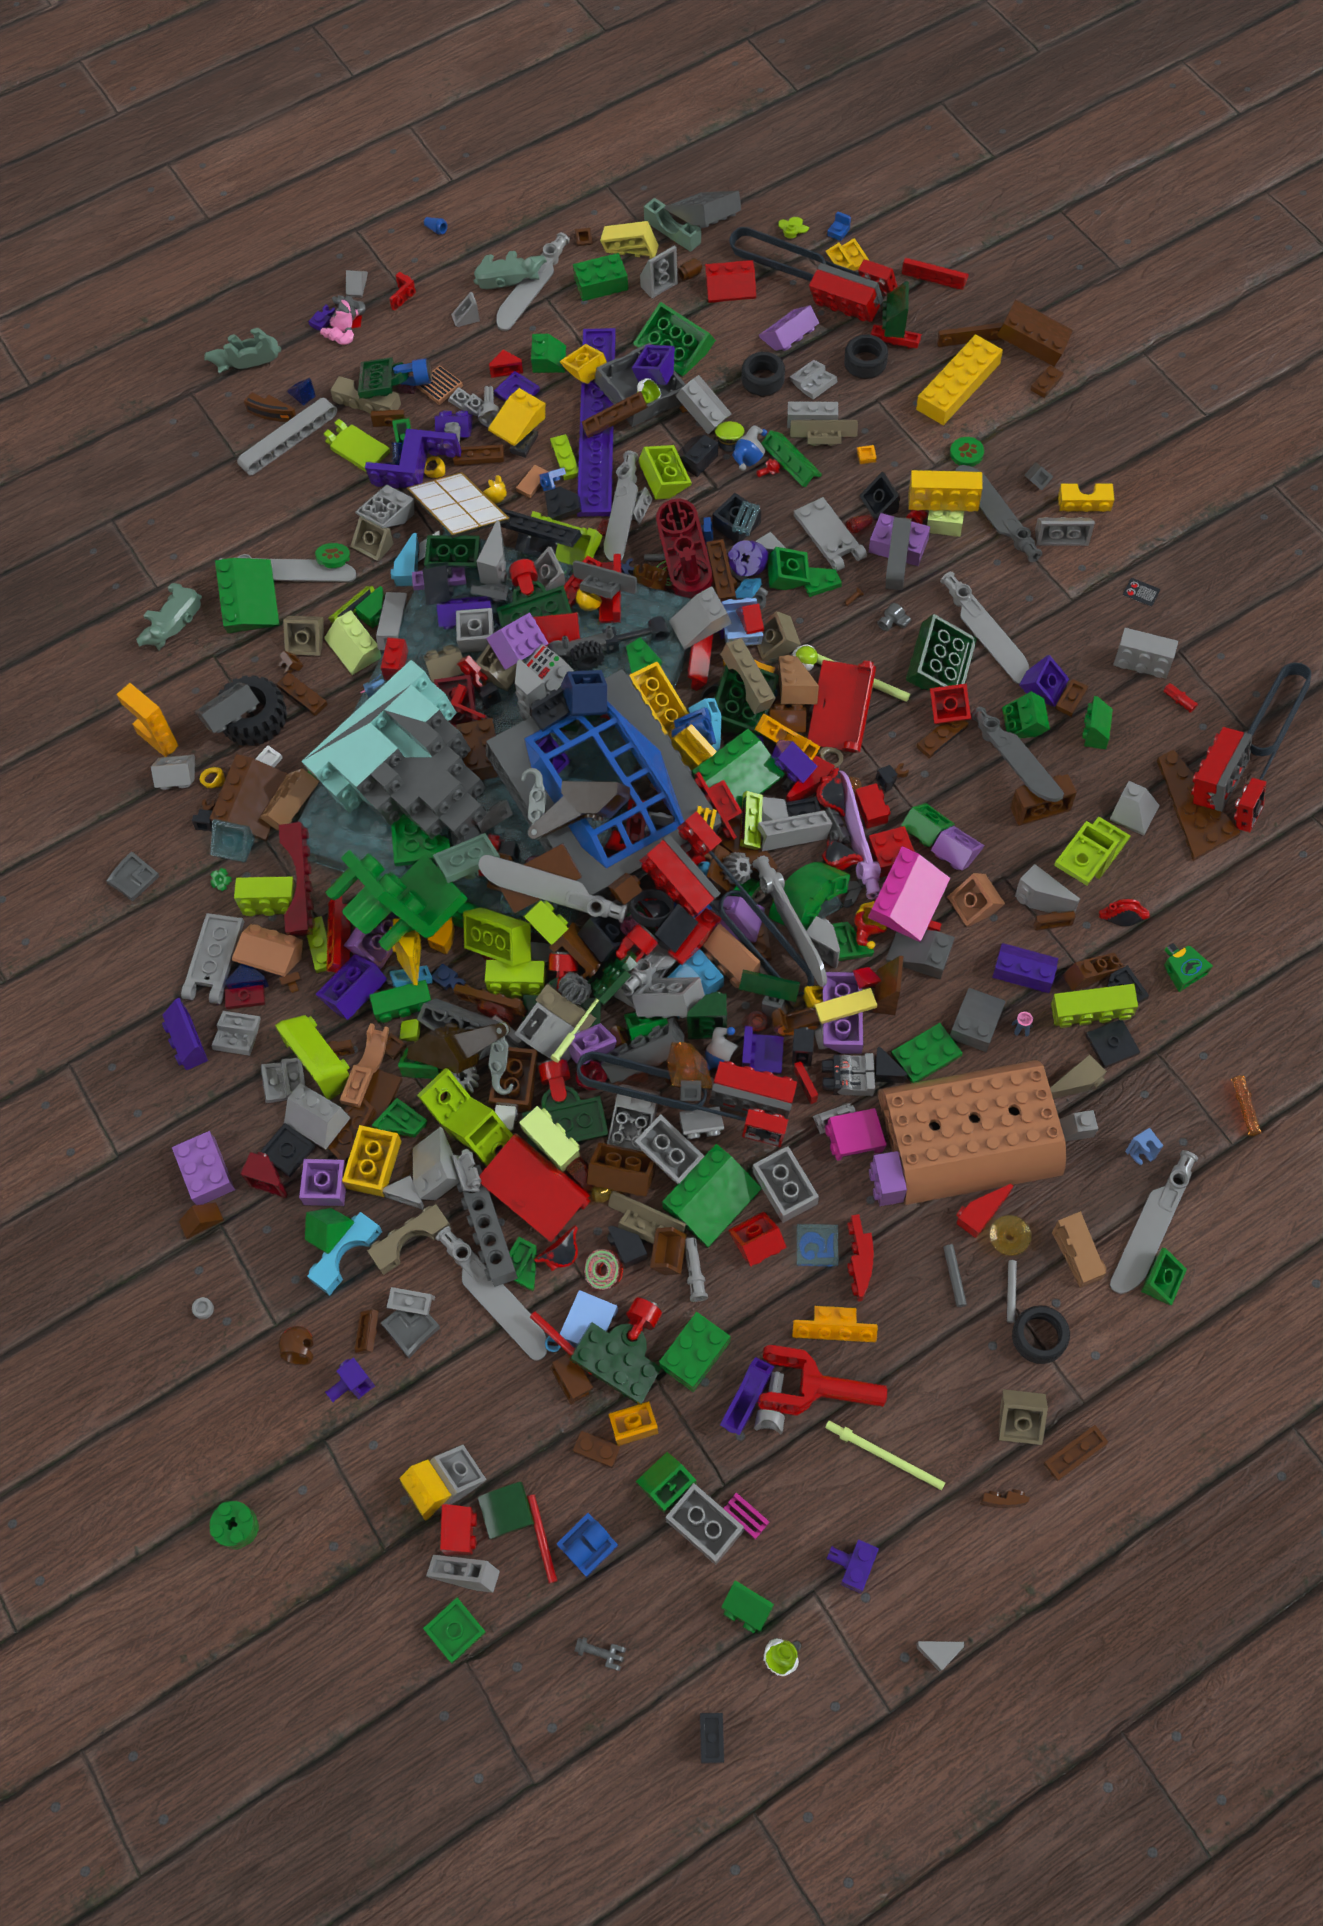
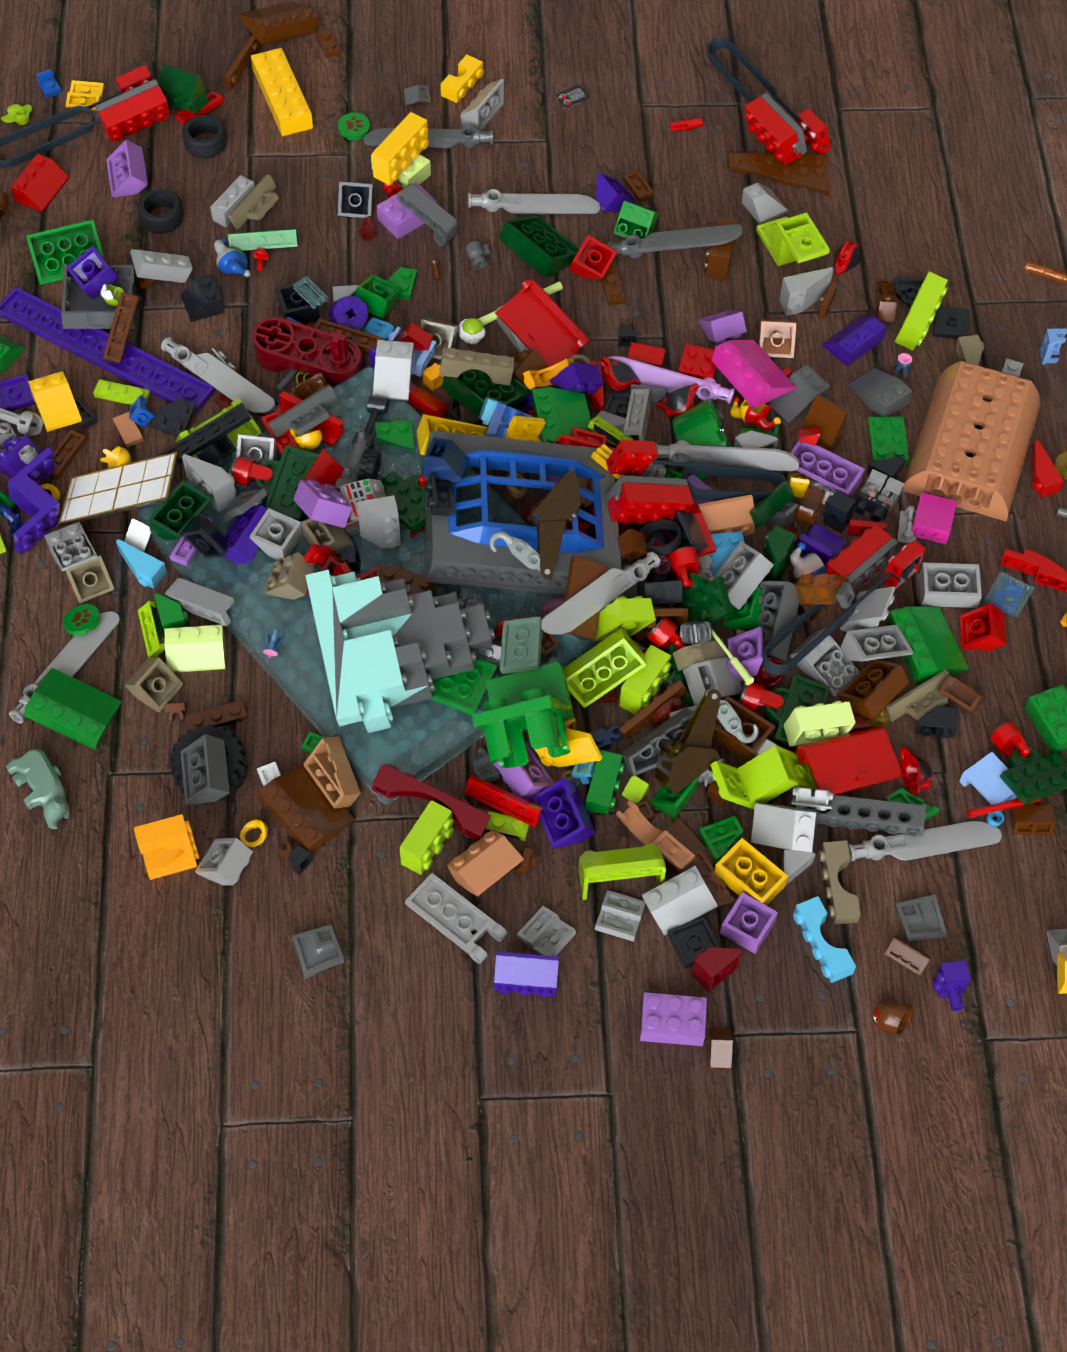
camera: 65 degrees left, 5 degrees down
(202, 1308) = (808, 1083): light grey tile -> none
(220, 879) = (373, 874): green plant -> none
(231, 840) = (340, 845): clear light blue slope -> none
(231, 1513) = (1034, 1130): green brick -> none
(244, 997) = (513, 910): dark red plate -> none
(245, 977) = (497, 896): clear blue slope -> none
(326, 1228) = (795, 941): green slope -> none
(394, 657) = (256, 612): red brick -> none
(410, 1301) = (901, 905): light grey panel -> none
(583, 363) = (39, 323): yellow slope -> none
(593, 1266) = (962, 744): clear red tile -> none
(664, 471) = (204, 328): lime slope -> none
(695, 1279) = (993, 689): light grey pin -> none
(728, 434) = (203, 265): lime piece -> none
(795, 682) = (498, 341): medium nougat wedge -> none
(813, 379) = (193, 183): light grey slope -> none
(828, 533) = (360, 253): light grey hinge -> none
(845, 1006) = (825, 461): light yellow tile -> none
(866, 454) = (301, 189): light orange tile -> none
(887, 1178) = (986, 514): medium lavender brick -> none
(926, 824) = (691, 331): green slope -> none
(934, 273) = (157, 51): red panel -> none
(1097, 724) = (676, 183): green slope -> none
(1145, 653) = (637, 119): light grey brick -> none
(1185, 966) = (917, 245): green torso -> none

